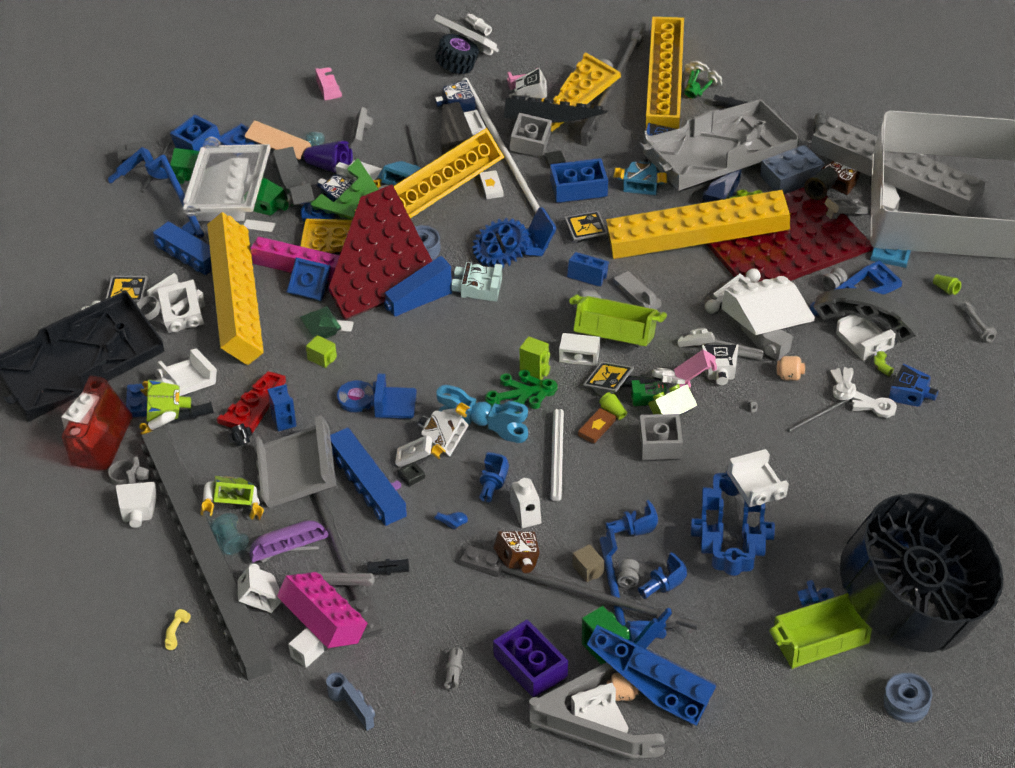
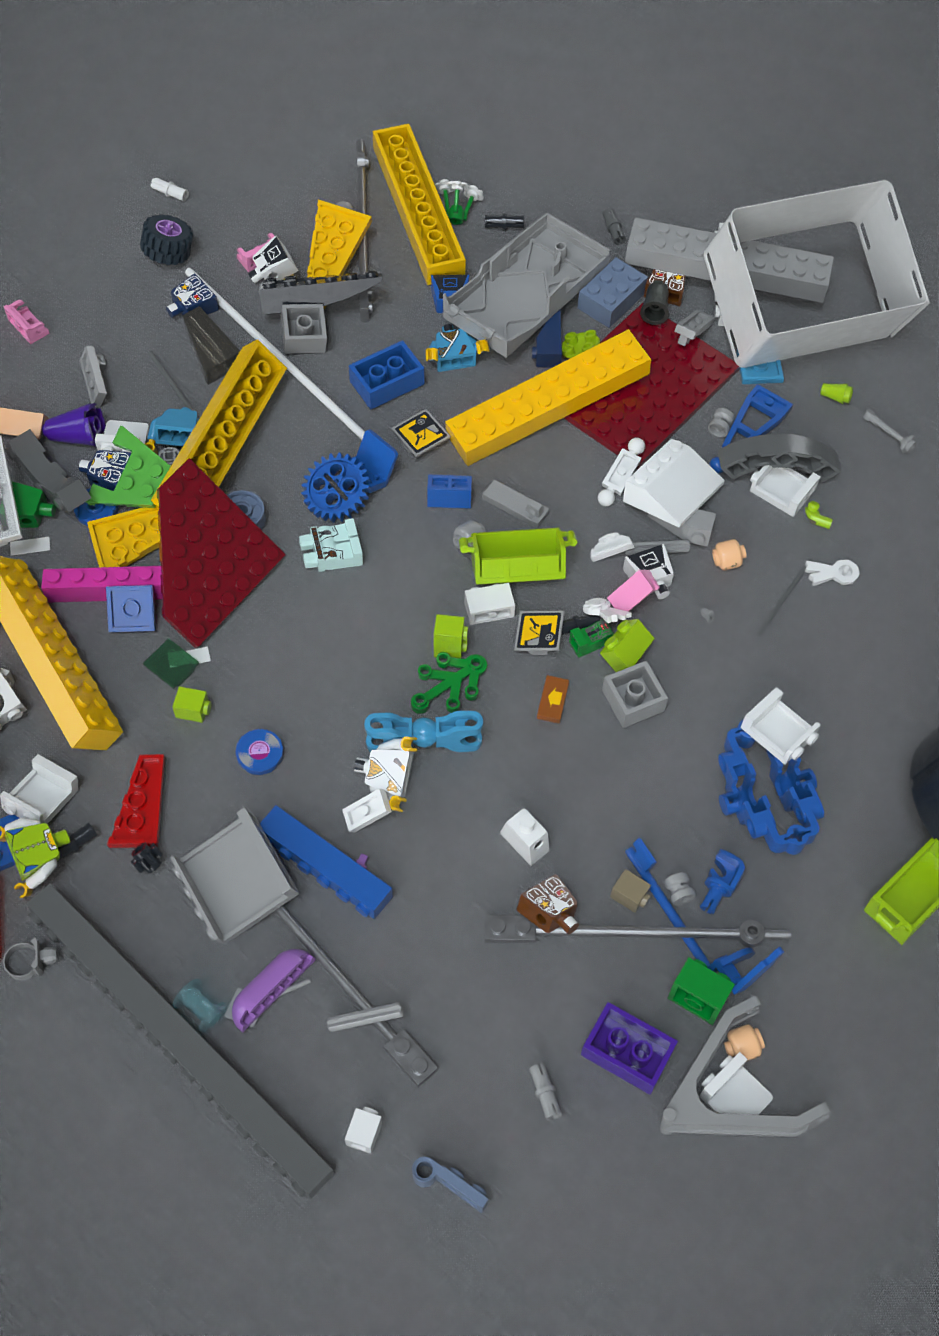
camera: 25 degrees left, 15 degrees up
(136, 502) = (61, 1001): white torso -> none
(180, 616) = (193, 1181): light yellow piece -> none
(231, 490) = (175, 946): torso -> none
(258, 589) = (271, 1072): white torso -> none
(282, 408) = (183, 804): blue hinge -> none
(315, 138) = (47, 405): clear light blue bar -> none
(322, 609) = (362, 1076): dark pink brick -> none
(392, 401) = (308, 744): blue bracket -> none
(402, 566) = (406, 978): black pin -> none
(411, 474) = (373, 838): pearl dark grey tile -> none
(420, 288) = (270, 579): blue slope -> none
(452, 520) = (452, 885): blue animal -> none
(474, 121) = (228, 326): white tile -> none
(484, 44) = (192, 218): white hinge -> none
(491, 184) = (285, 407): white tile -> none
(494, 479) = (474, 798): blue piece -> none
(554, 158) = (342, 351): pearl dark grey tile -> none
(557, 454) = (527, 754): white axle -> none
(611, 404) = (560, 667): lime cone -> none
(632, 525) = (655, 822): blue piece -> none
(654, 675) = (782, 1022): blue wedge -> none
(811, 596) = (896, 852): blue hips -> none
(844, 388) = (794, 563): white piece -> none
(912, 387) = (863, 537): blue torso -> none

